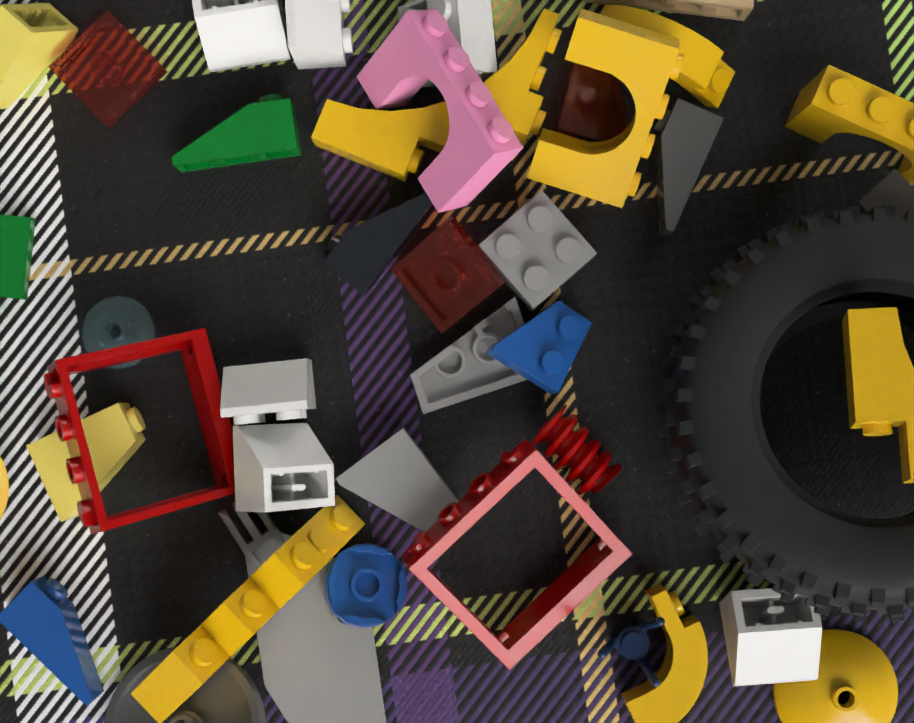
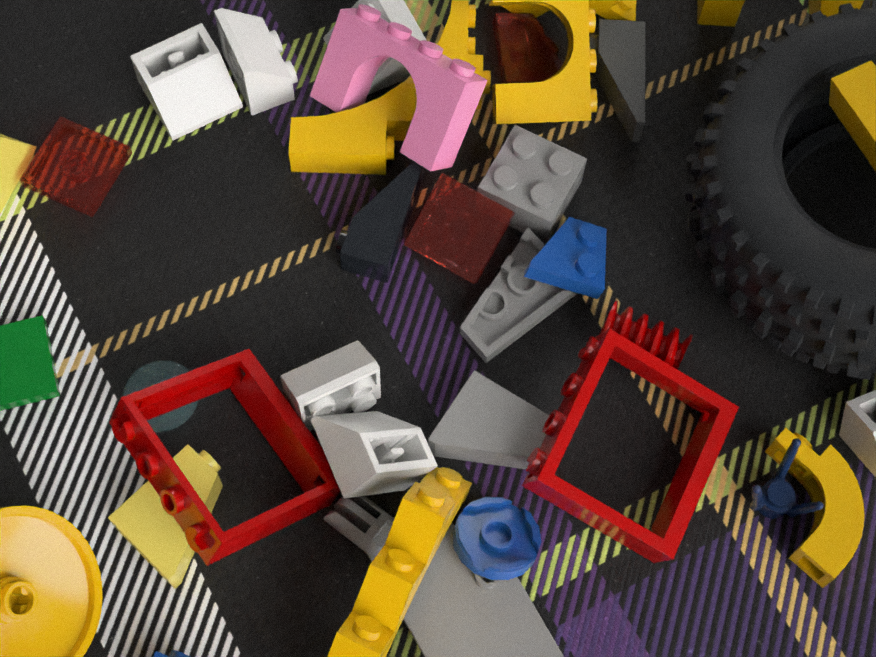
camera: 20 degrees left, 20 degrees down
(250, 135) = (229, 177): green slope -> none

